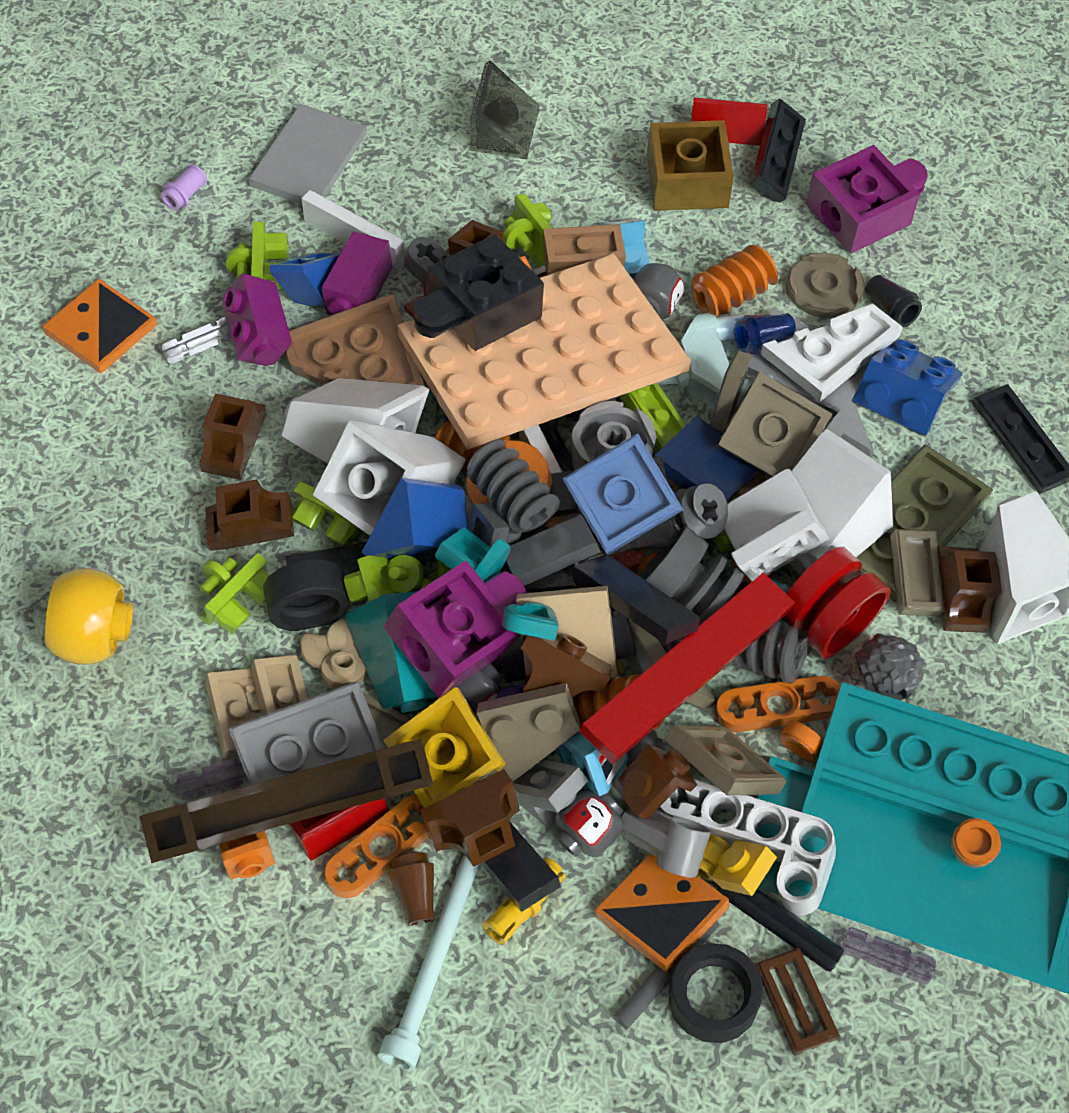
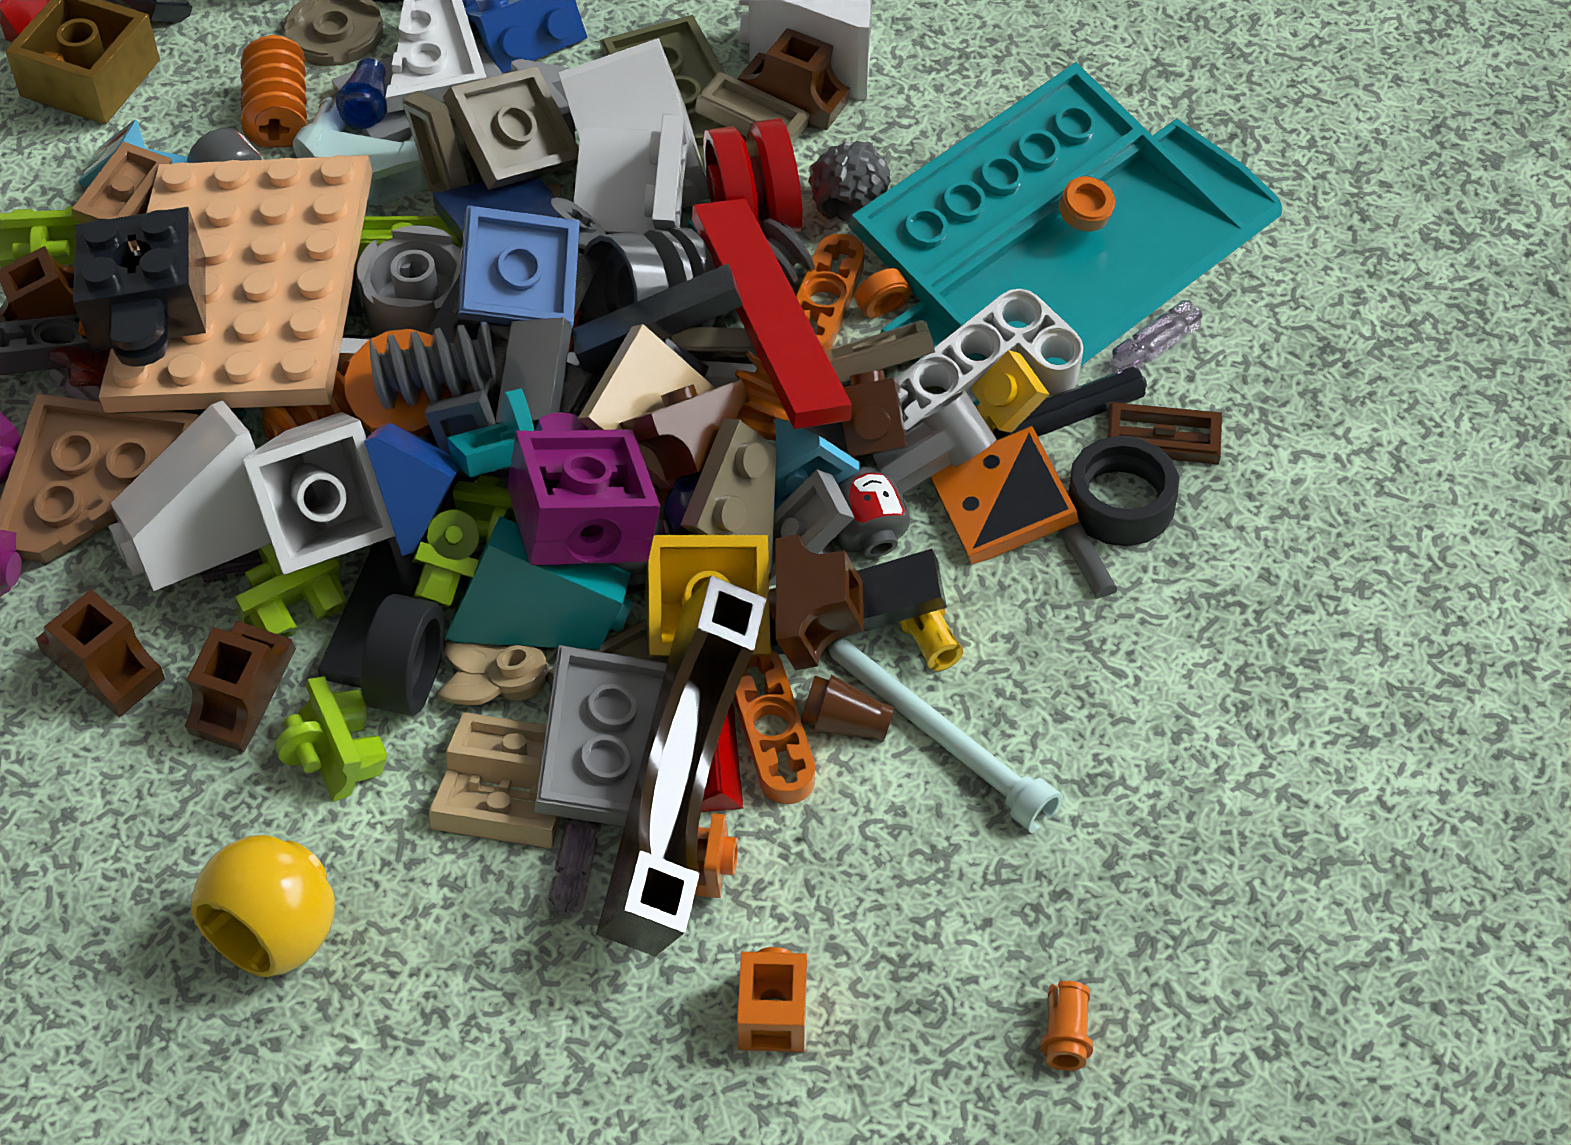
camera: 60 degrees left, 5 degrees down
(145, 936) = (772, 1023): none -> orange brick
(531, 620) = (637, 403): teal tile -> none

